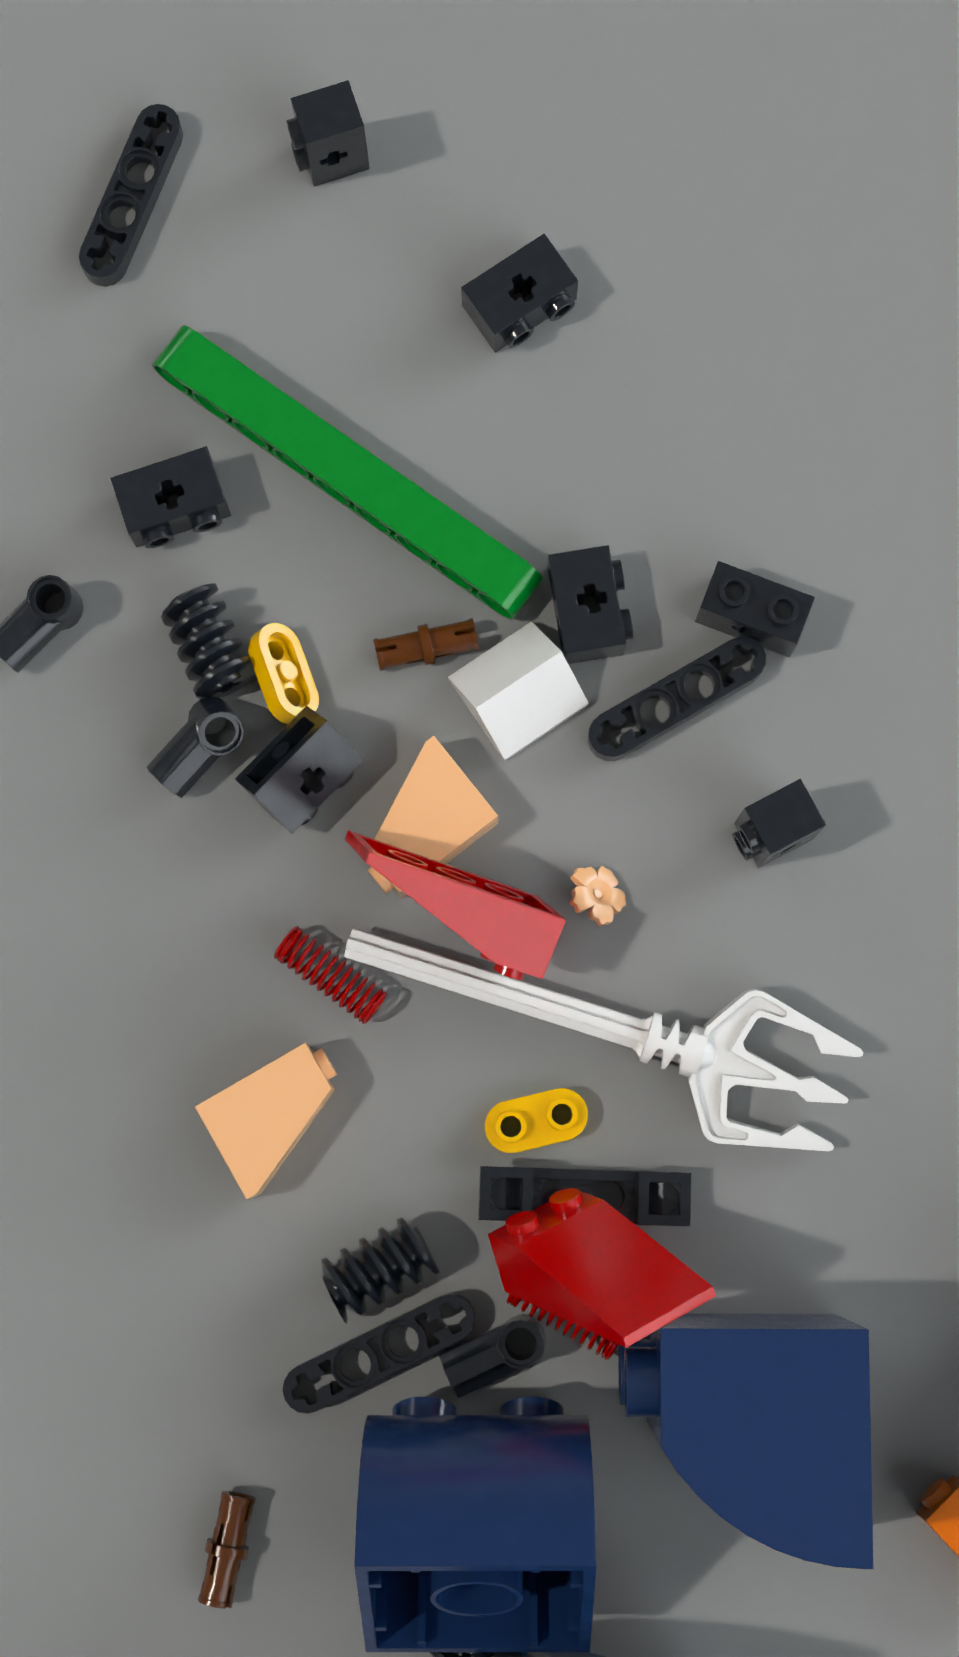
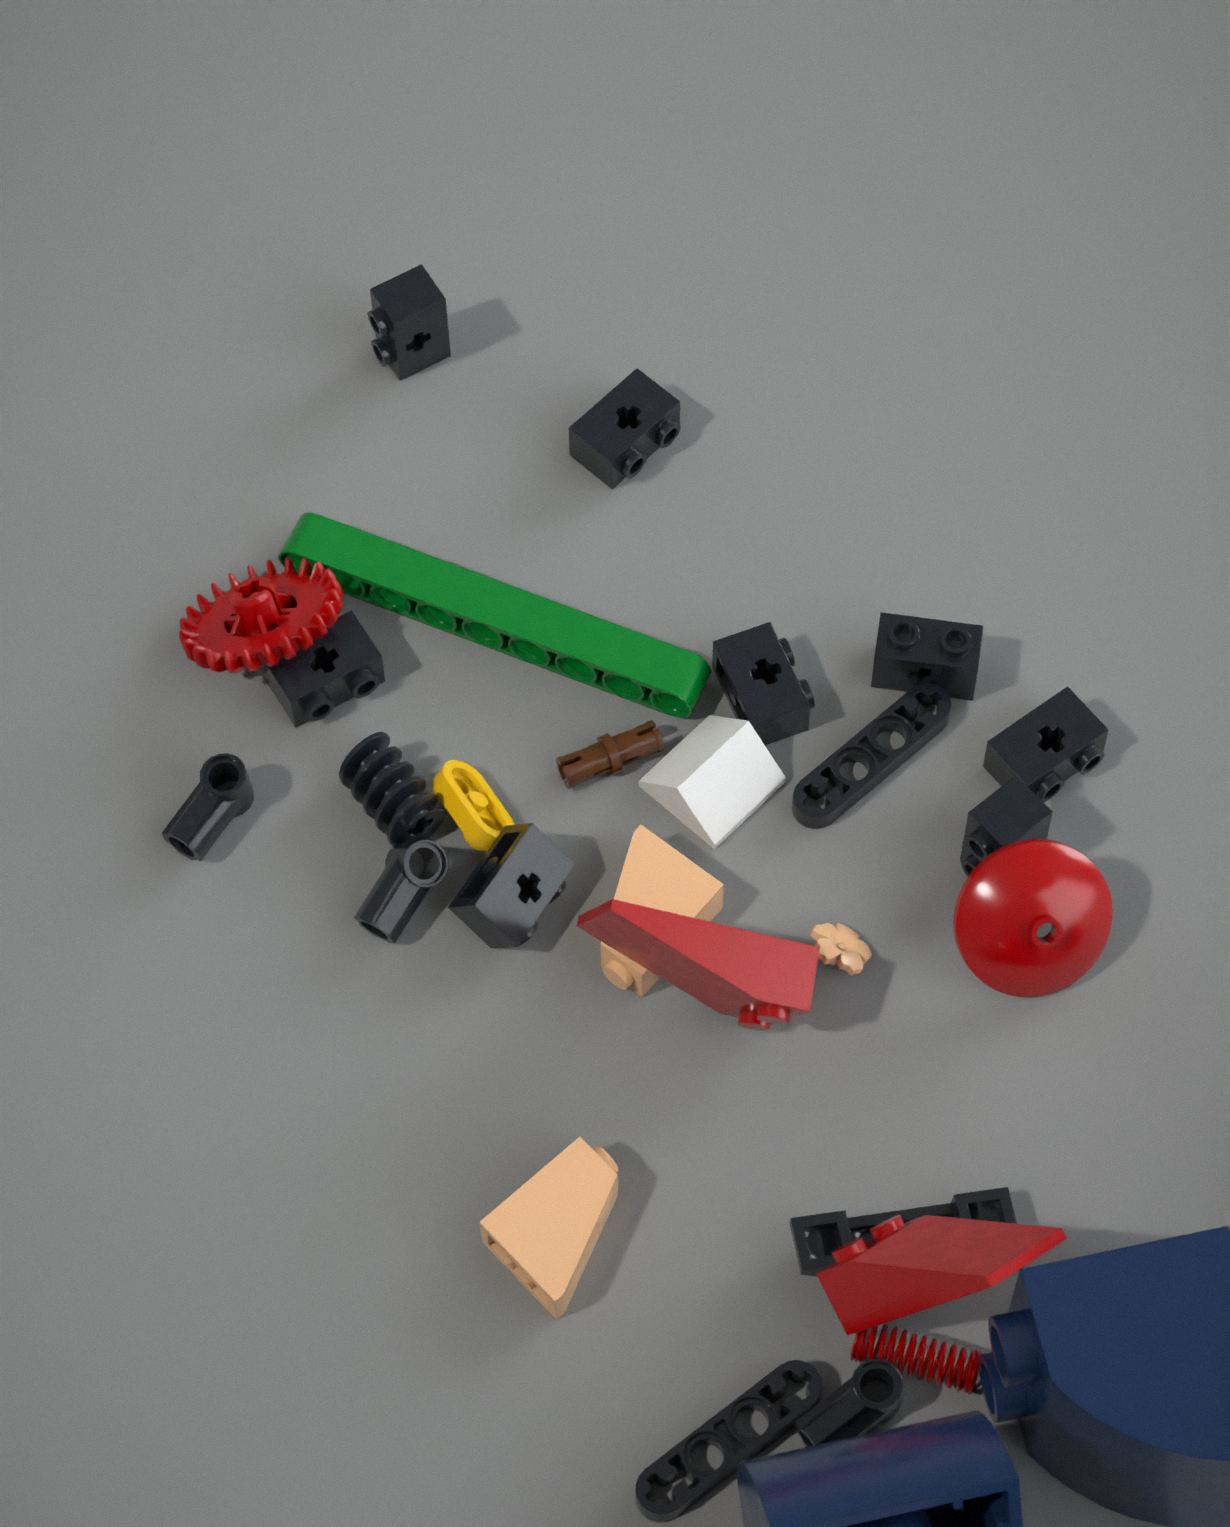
camera: 15 degrees left, 20 degrees down
(116, 425) = (261, 618): none -> red gear
(126, 193) = (223, 417): black beam -> none
(287, 945) = (541, 1054): red piece -> none
(377, 1268) = (705, 1346): black piece -> none
(536, 1120) = (838, 1178): yellow plate -> none
(707, 1055) = (996, 1074): white piece -> none
(782, 915) = (1015, 895): none -> red dish
(865, 710) = (1048, 745): none -> black brick

